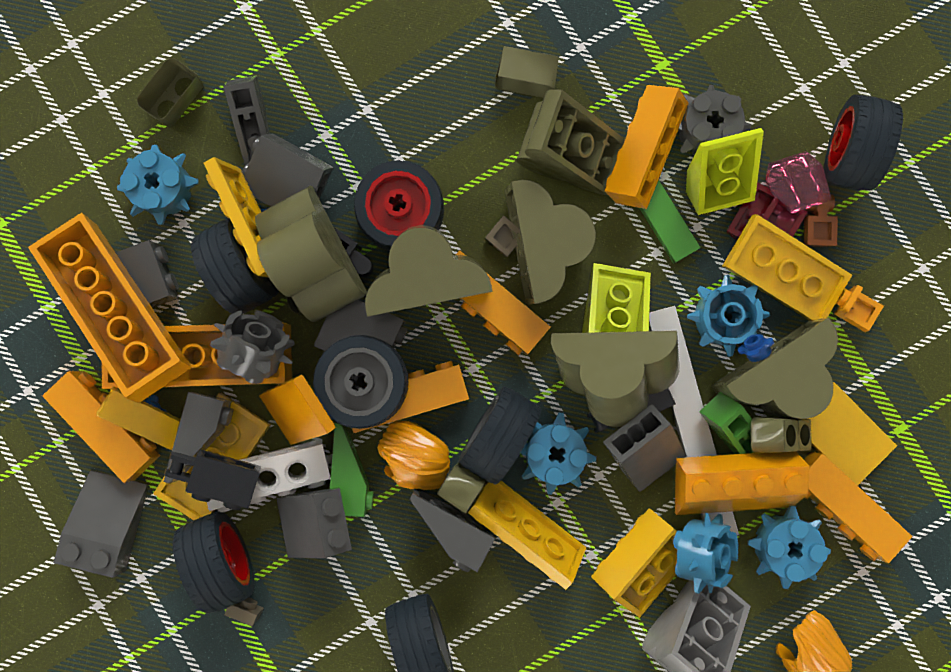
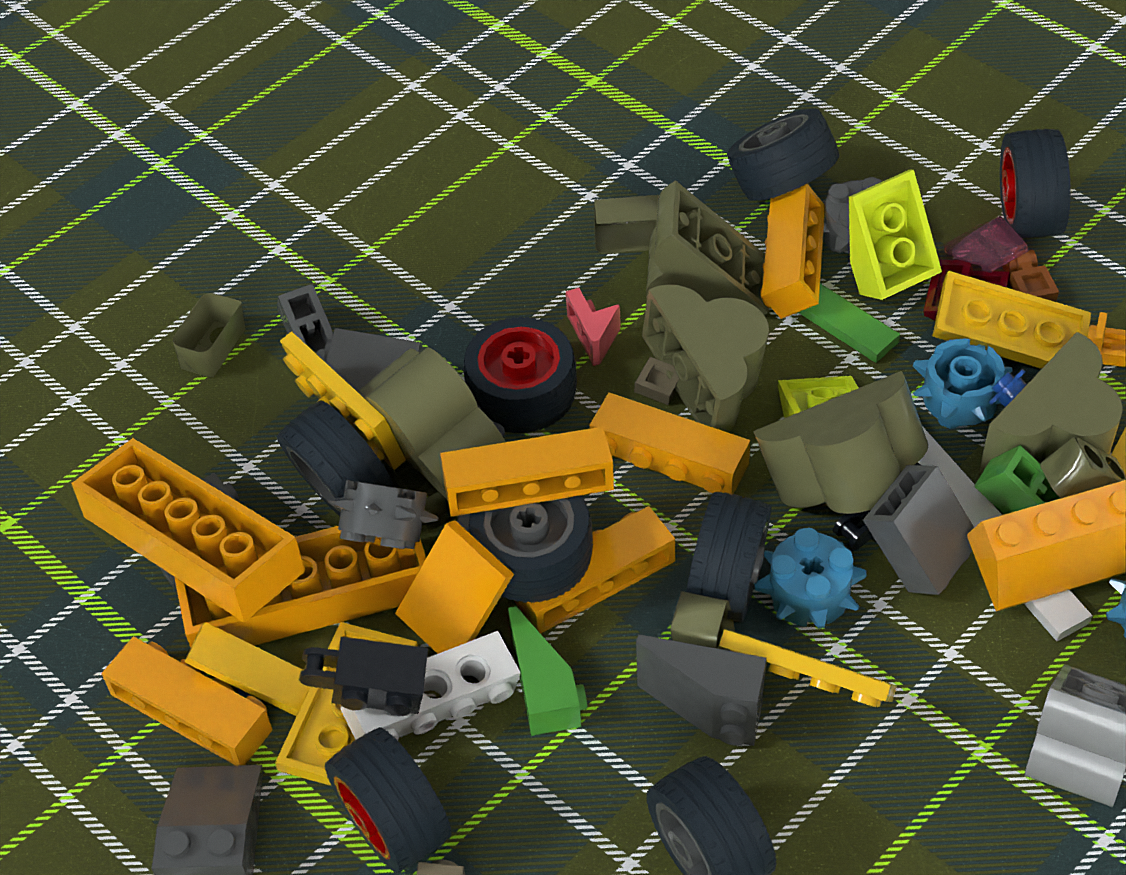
camera: 10 degrees left, 35 degrees down
(145, 172) = (210, 422): dark azure brick -> none
(200, 425) = (322, 629): dark grey slope -> none
(314, 524) = (513, 723): dark grey brick -> none
(363, 347) = (527, 471): none -> light orange brick
(414, 456) = (619, 619): light orange hair -> none
(424, 273) = (581, 388): olive brick -> none
(469, 176) = (594, 328): none -> coral slope
(640, 564) = (982, 677): yellow slope -> none
(671, 47) = (783, 154): none -> black wheel
(705, 552) = (1053, 623): dark azure brick -> none

